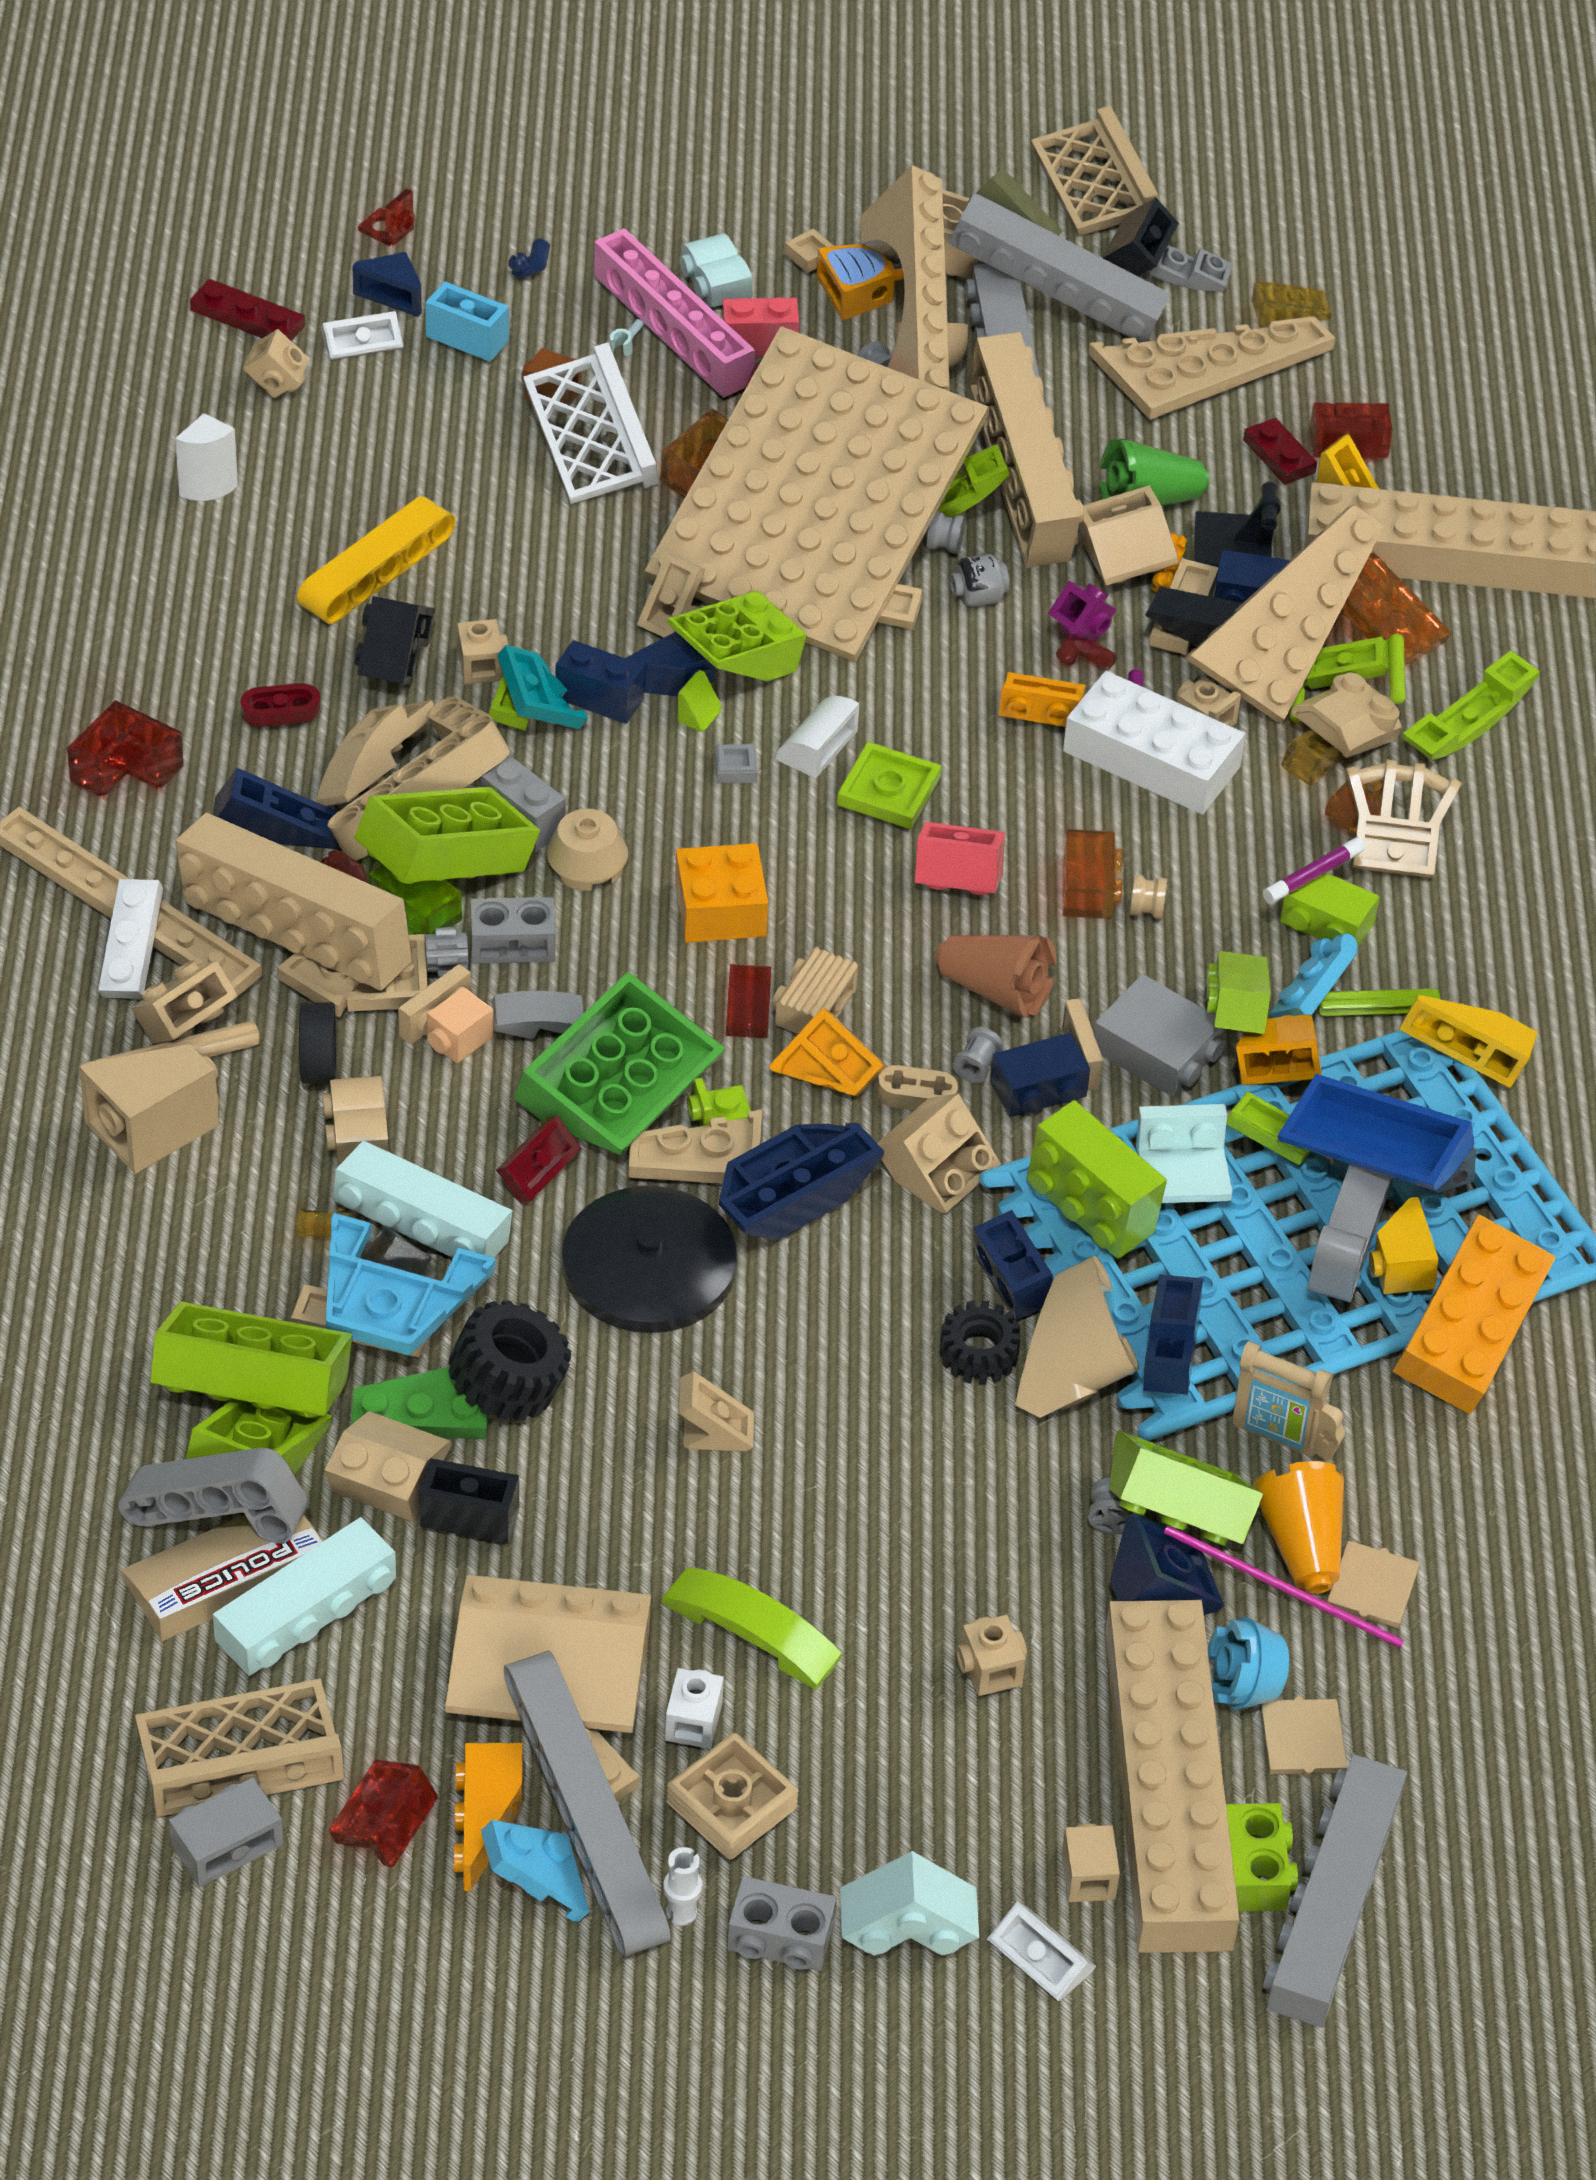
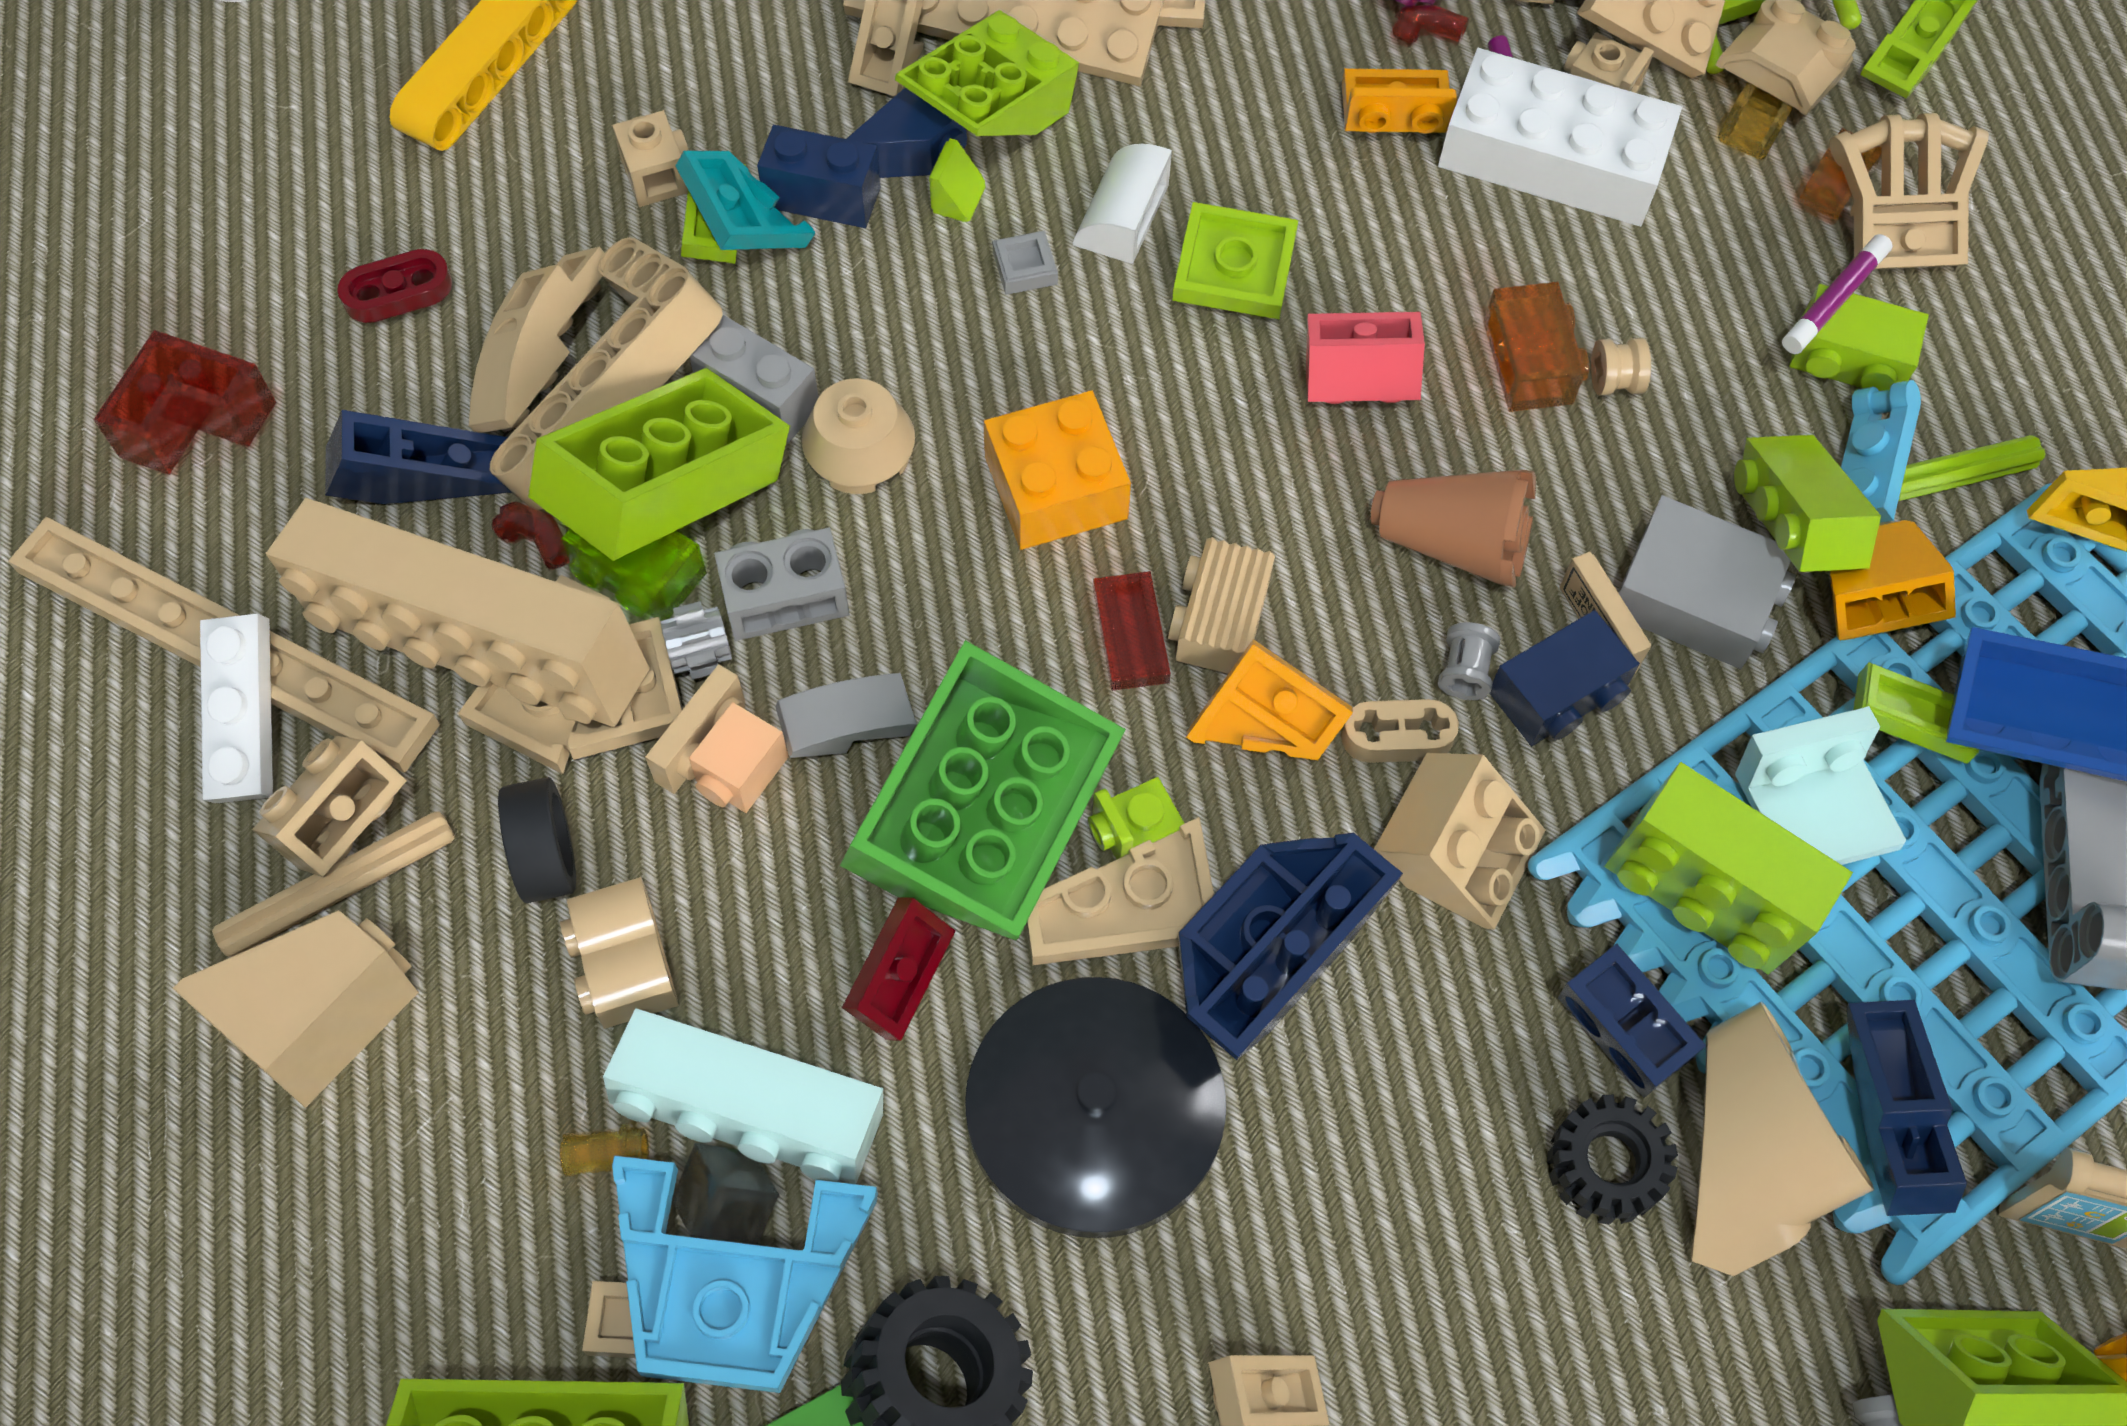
camera: 10 degrees left, 15 degrees up
(393, 639) = (529, 163): black brick -> none

